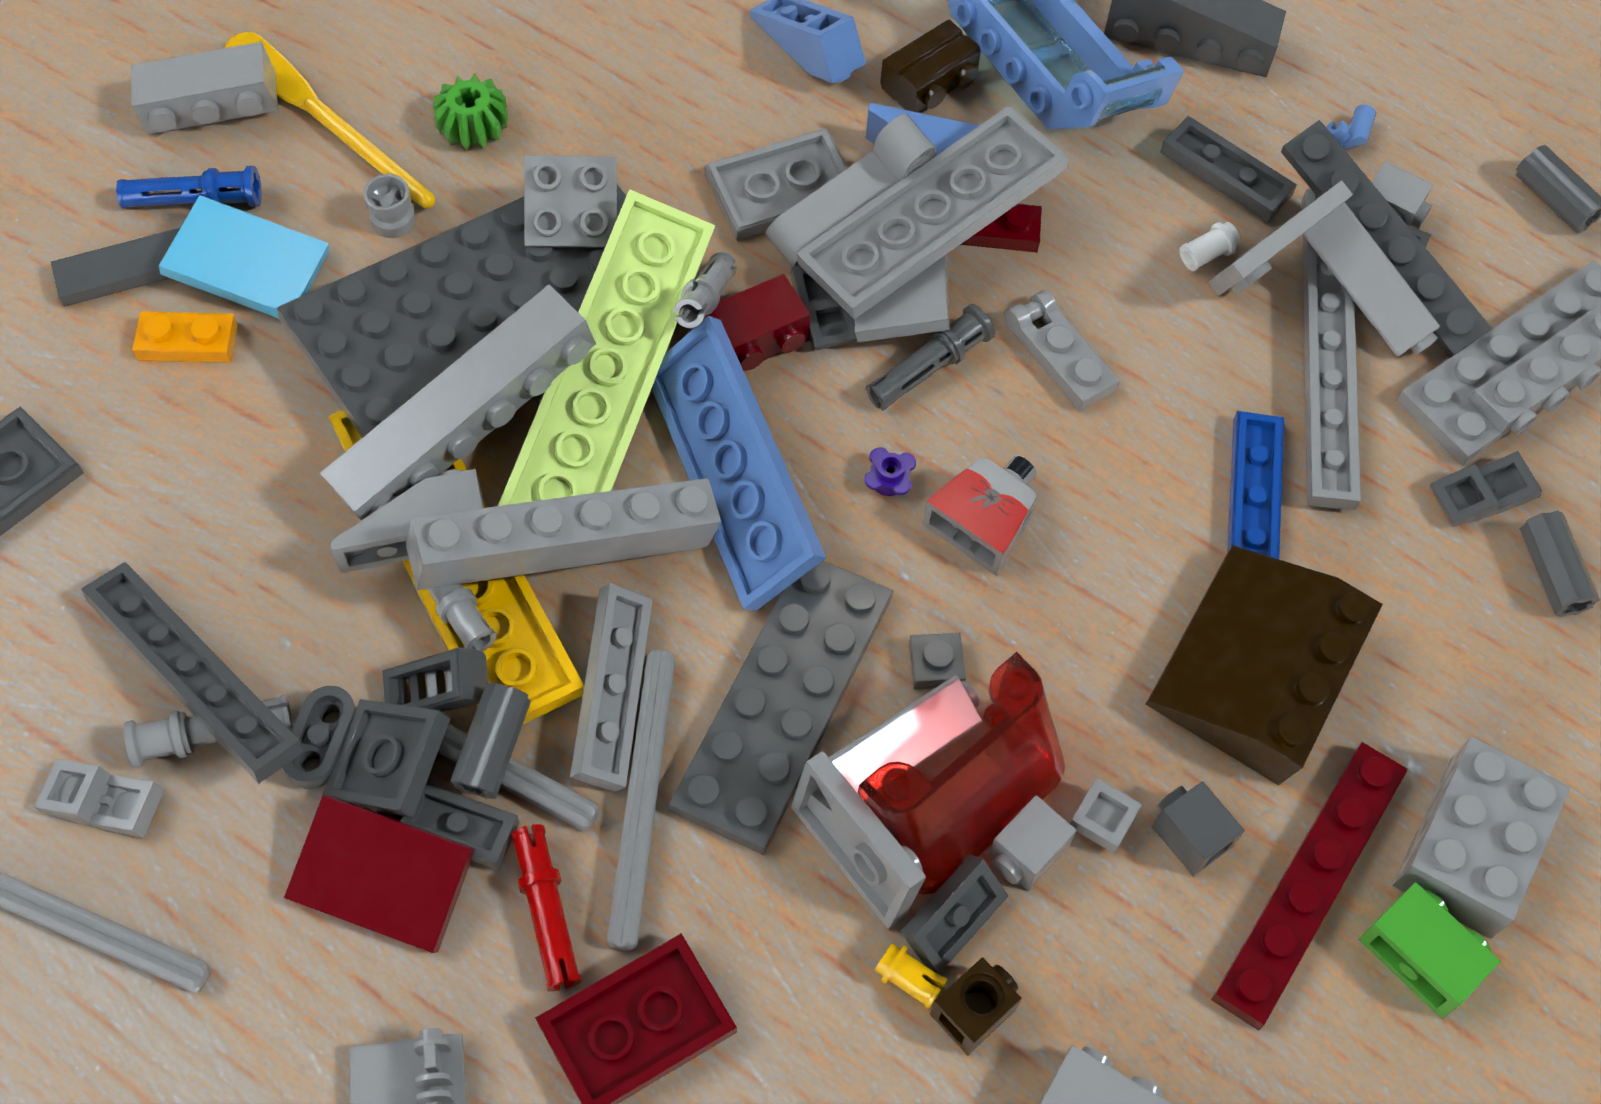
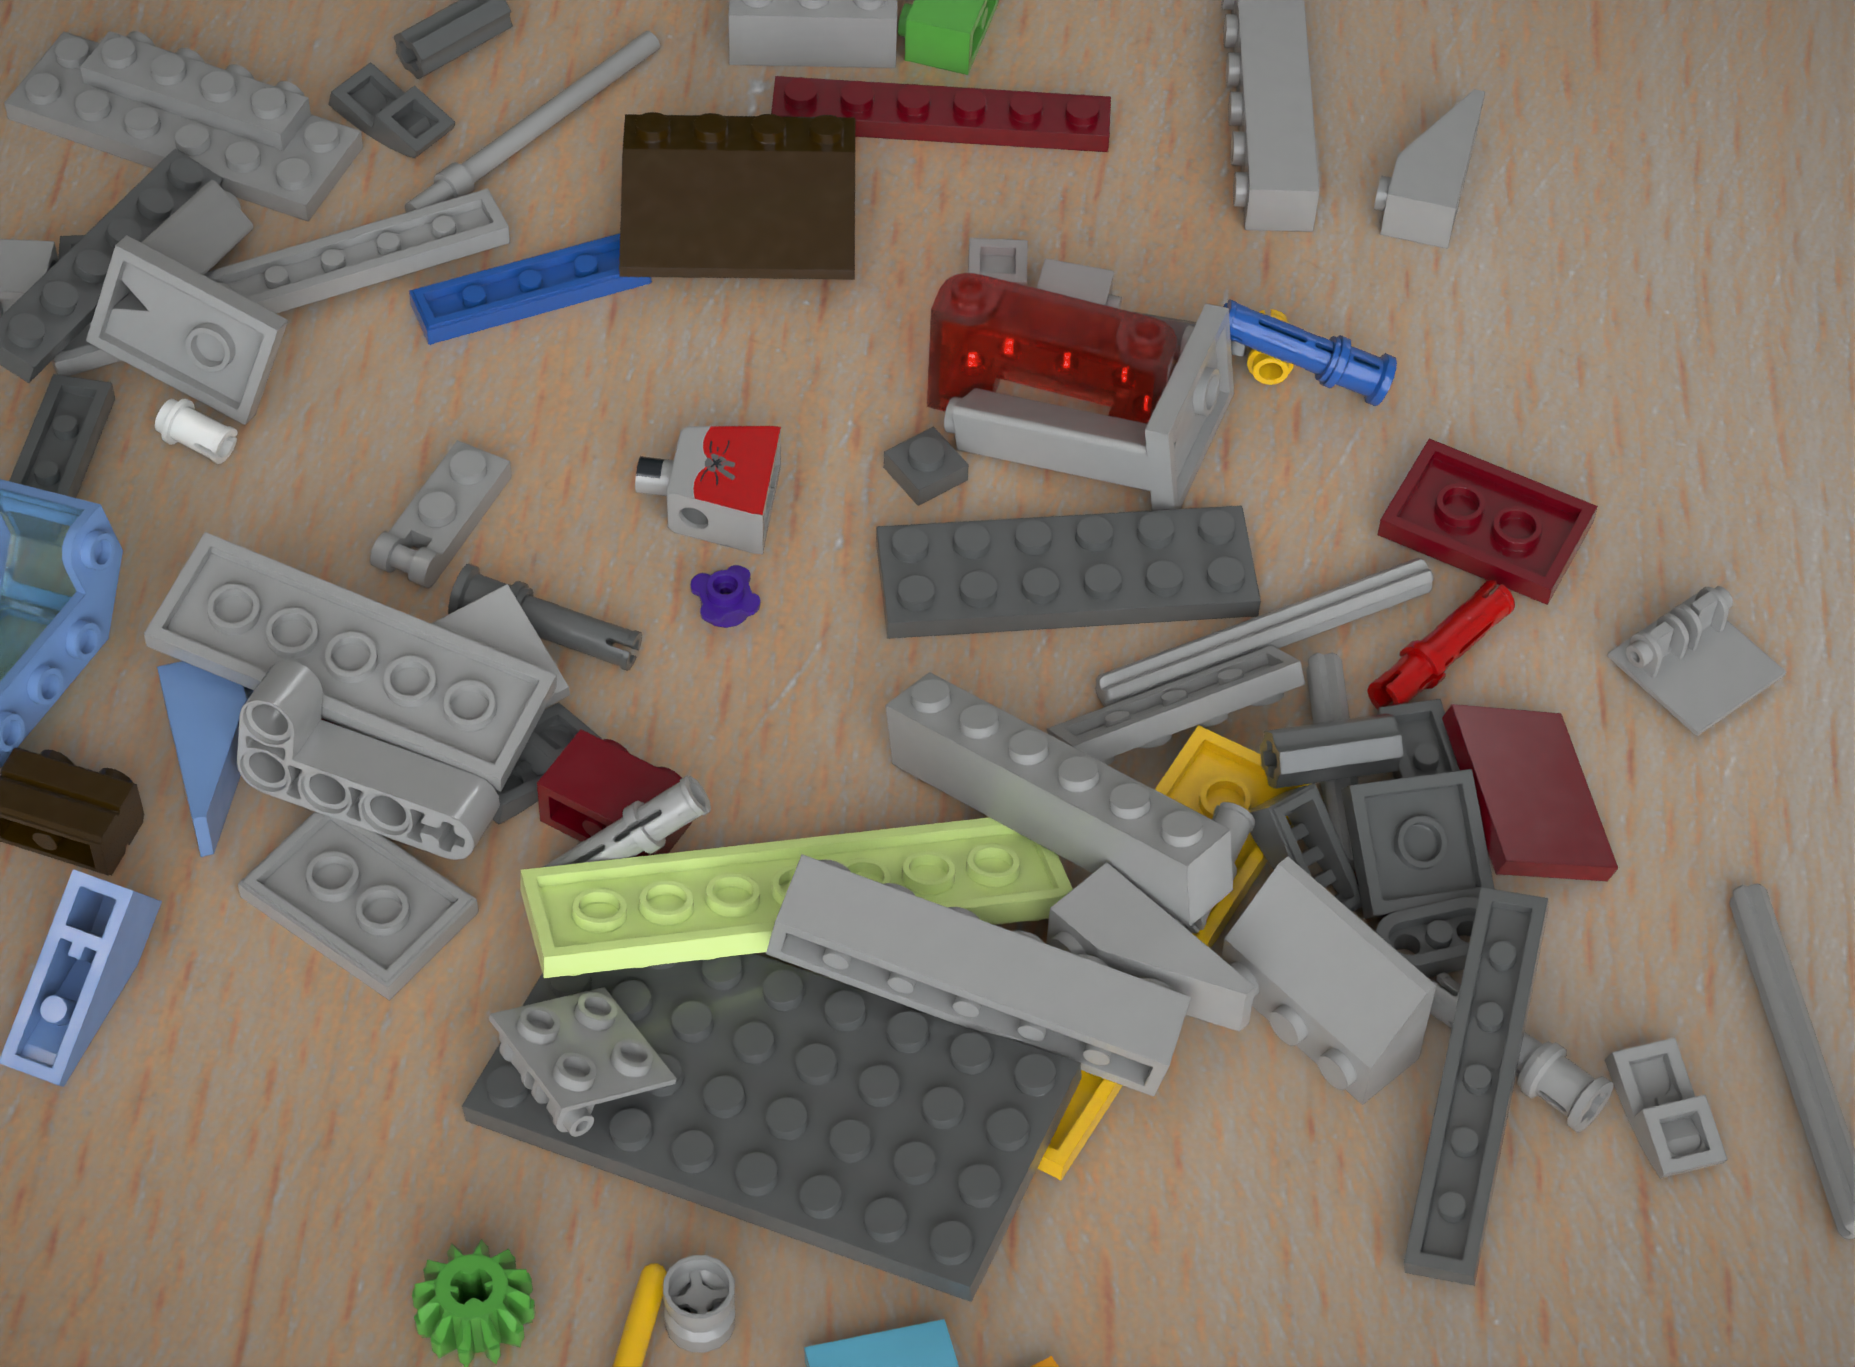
camera: 120 degrees left, 10 degrees down
(325, 630) = (1330, 983): none -> light grey slope
(725, 438) = (827, 715): medium blue plate -> none
(855, 997) = (1330, 359): none -> blue pin
(963, 1024) = (1261, 277): dark brown brick -> none
(1196, 826) = (959, 195): dark grey brick -> none
(1388, 497) = (460, 178): none -> light grey bar

